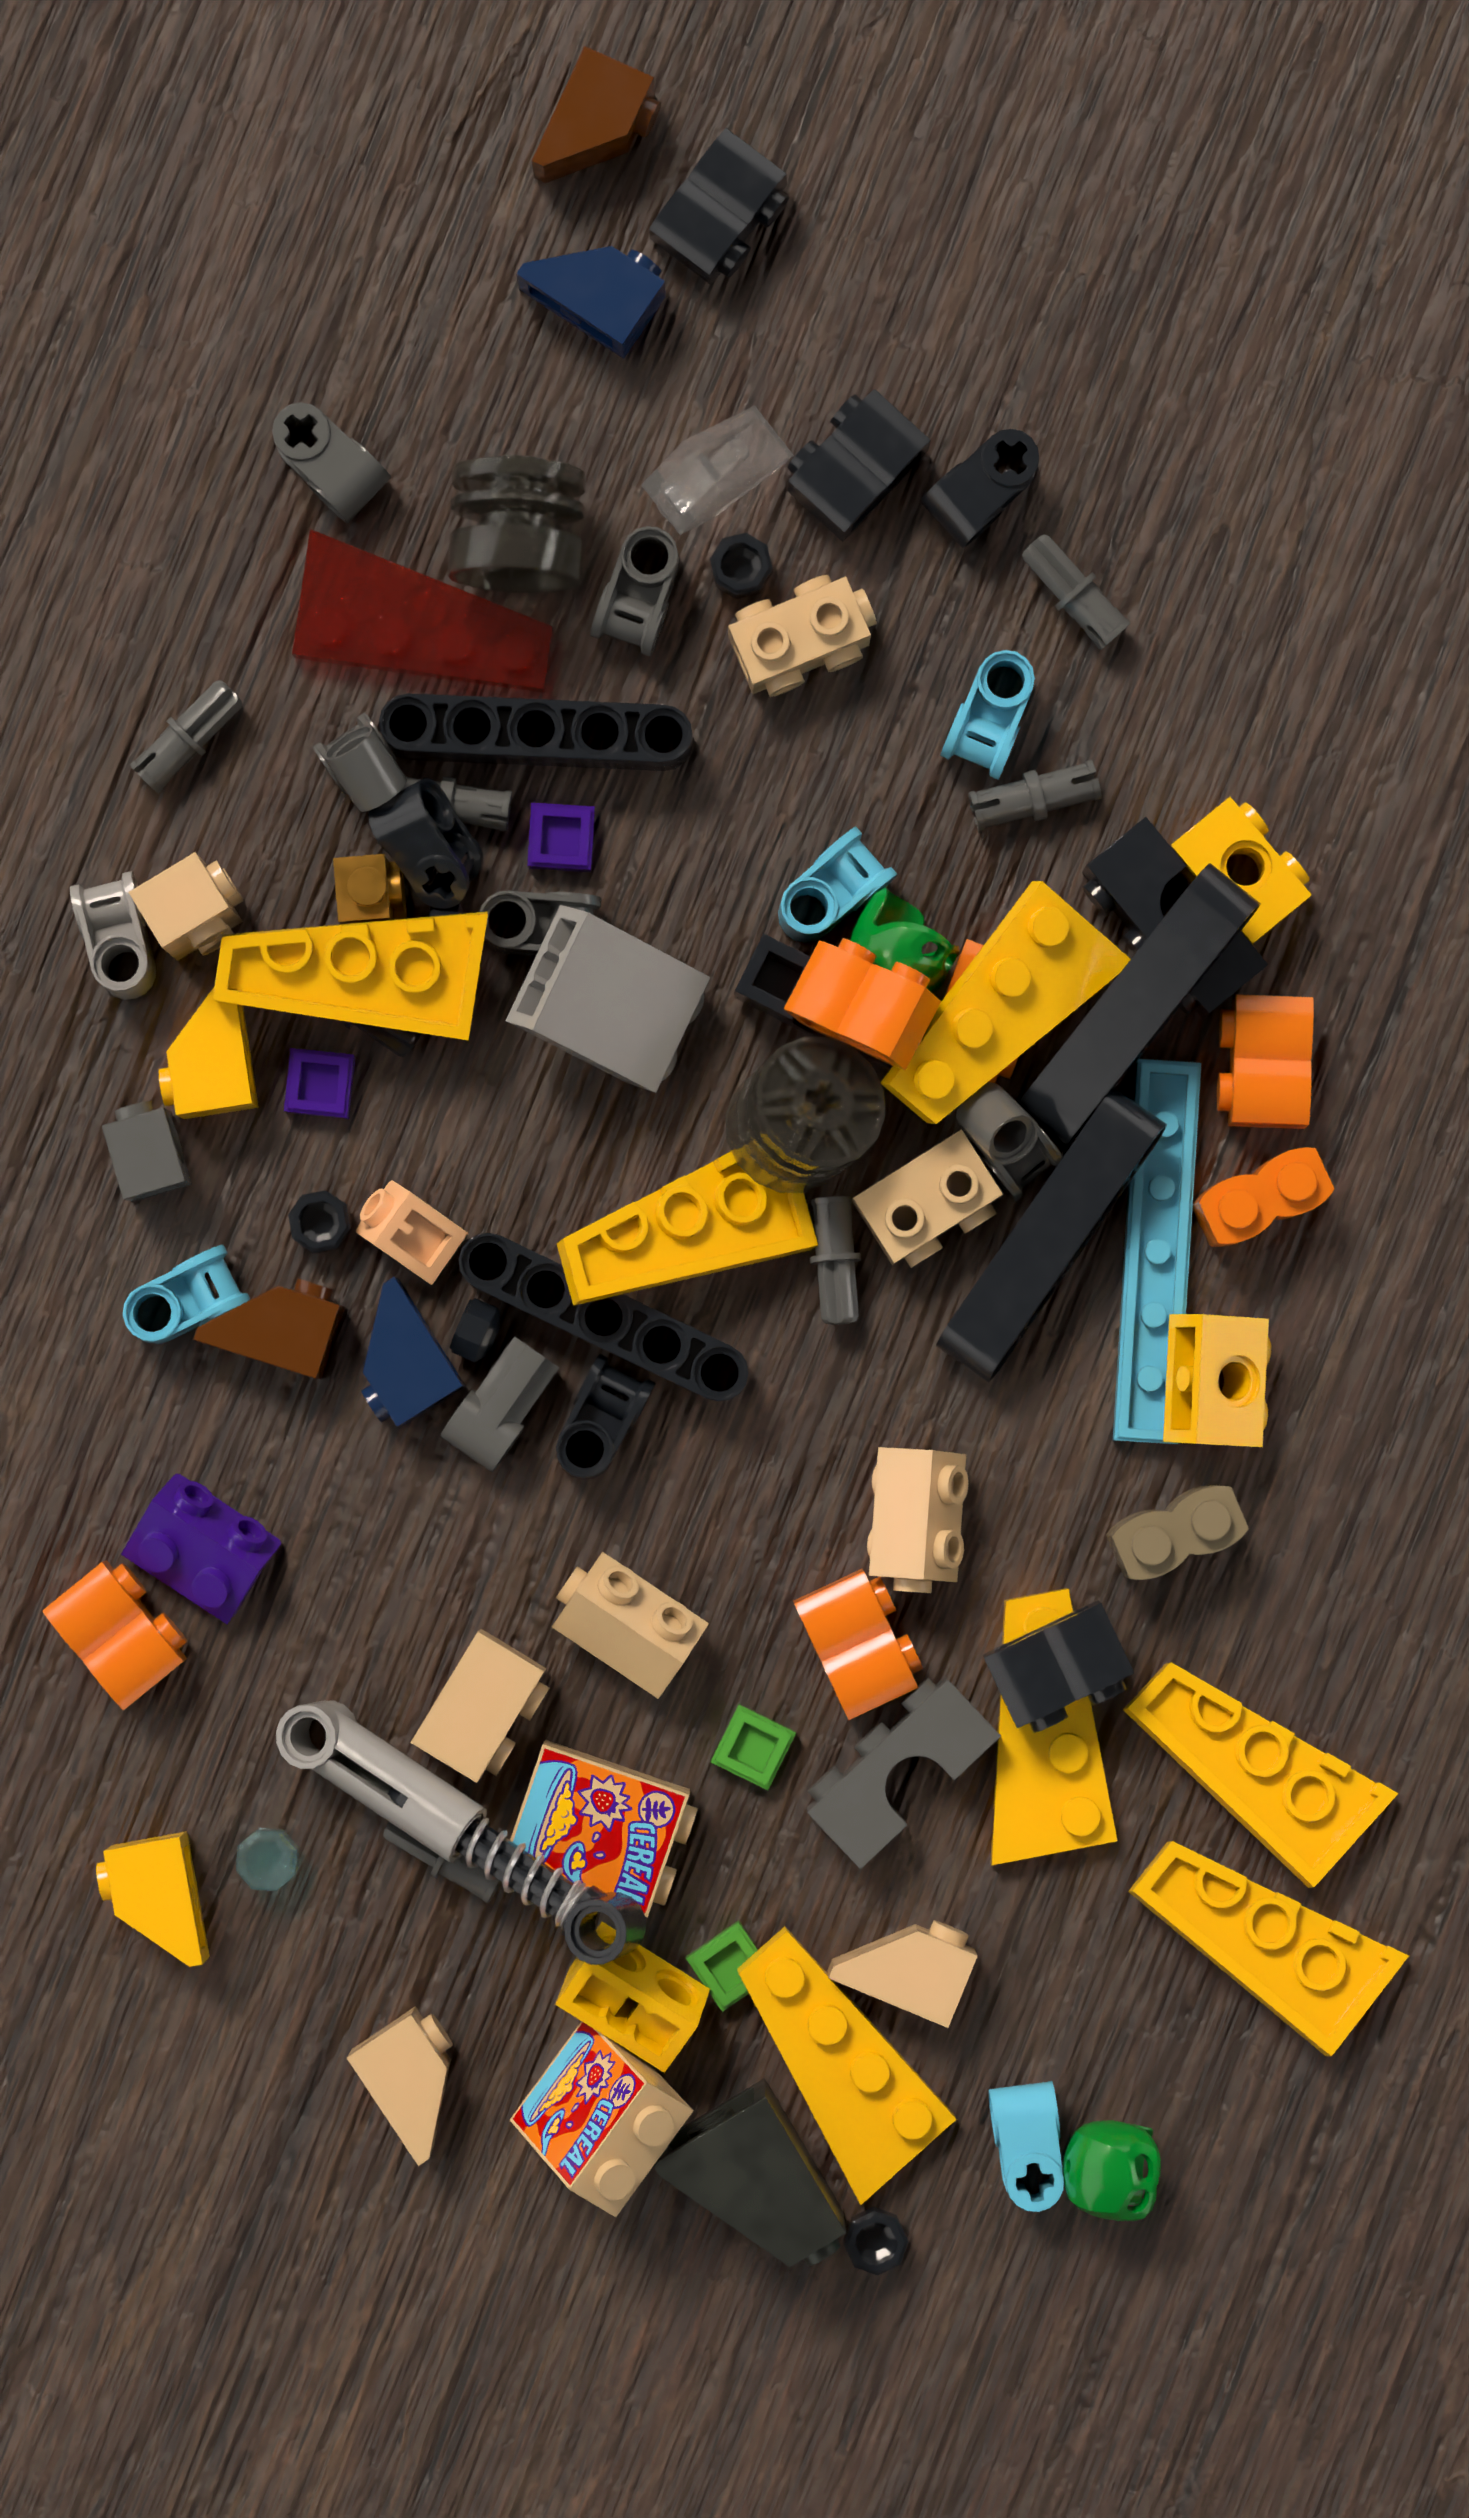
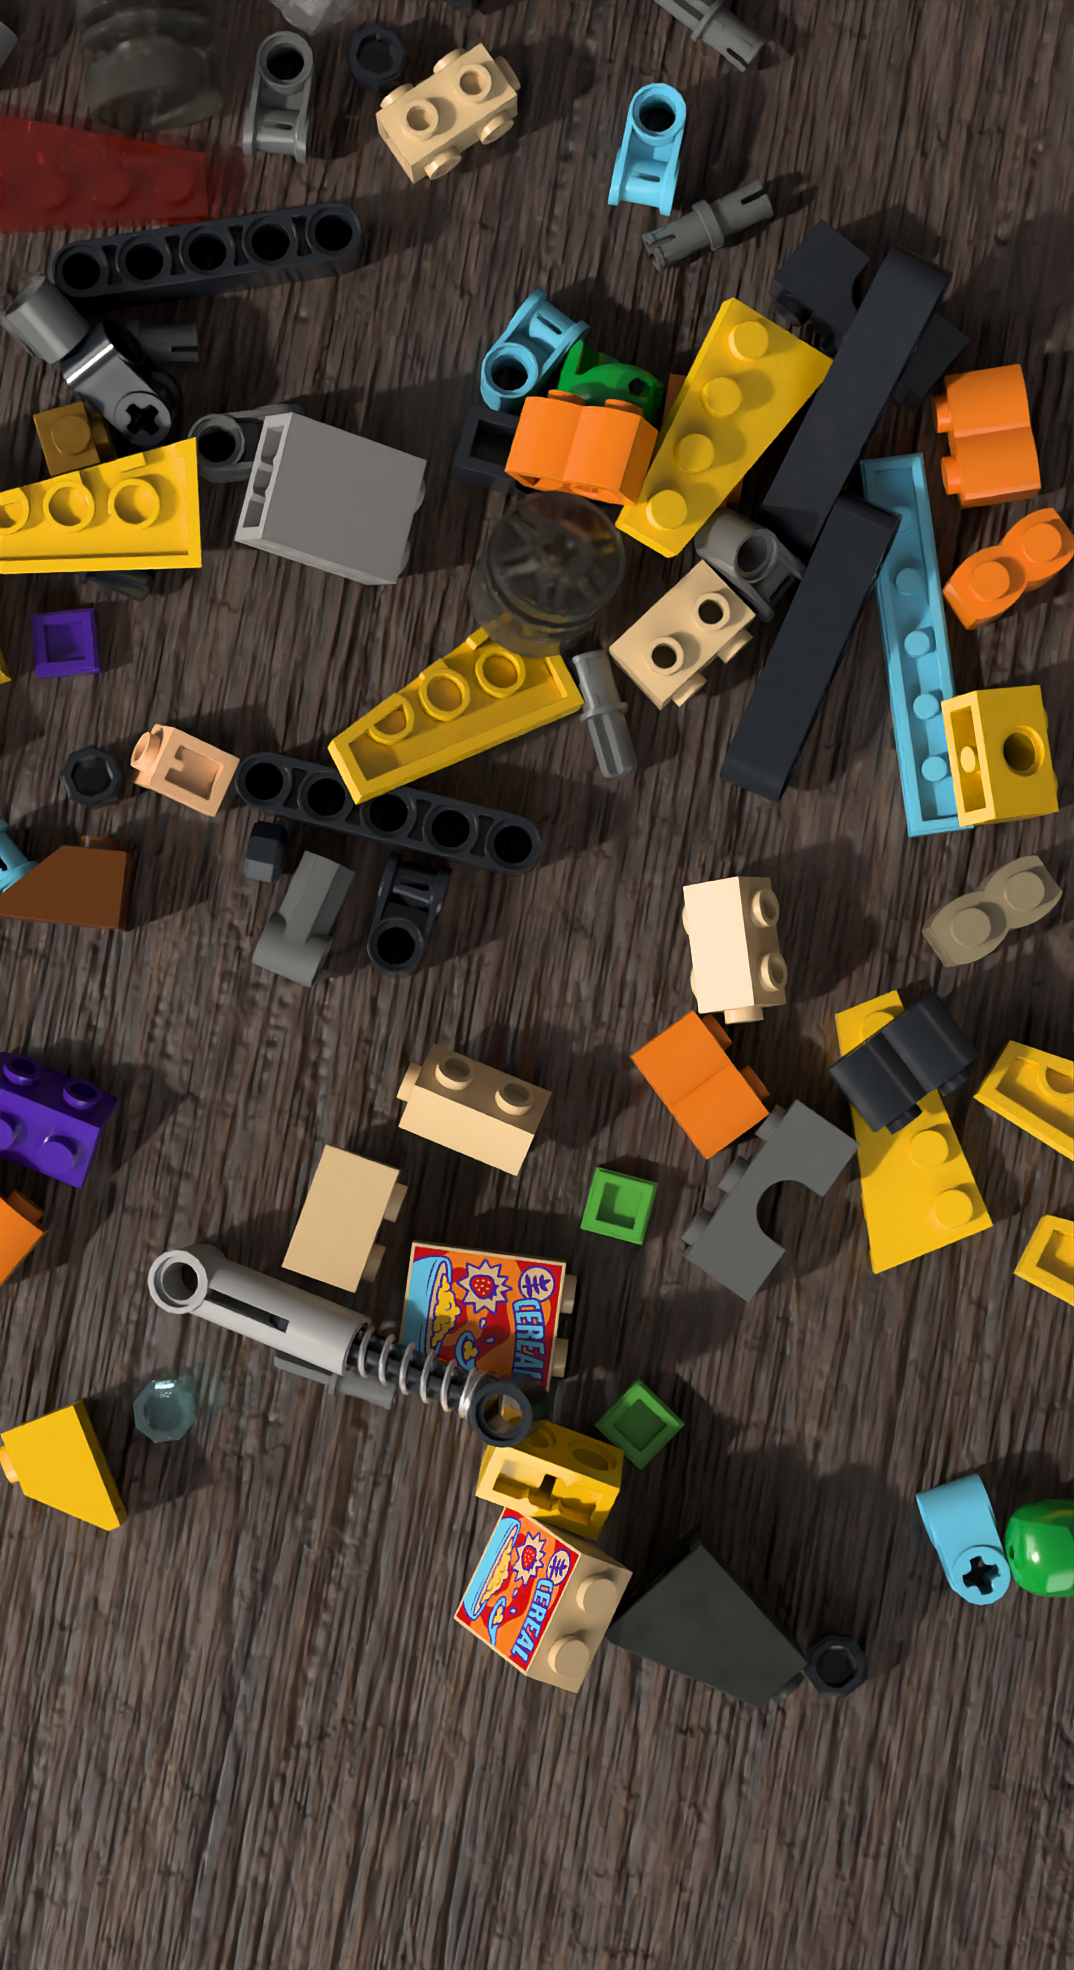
camera: 15 degrees left, 0 degrees up
(405, 1361) = (203, 896): dark blue slope -> none
(407, 2077) = (345, 1596): tan slope -> none
(561, 837) = (254, 358): dark purple tile -> none
(850, 2075) = (778, 1507): yellow wing -> none
(911, 1970) = (818, 1392): tan slope -> none
(1241, 831) = (917, 219): yellow brick -> none

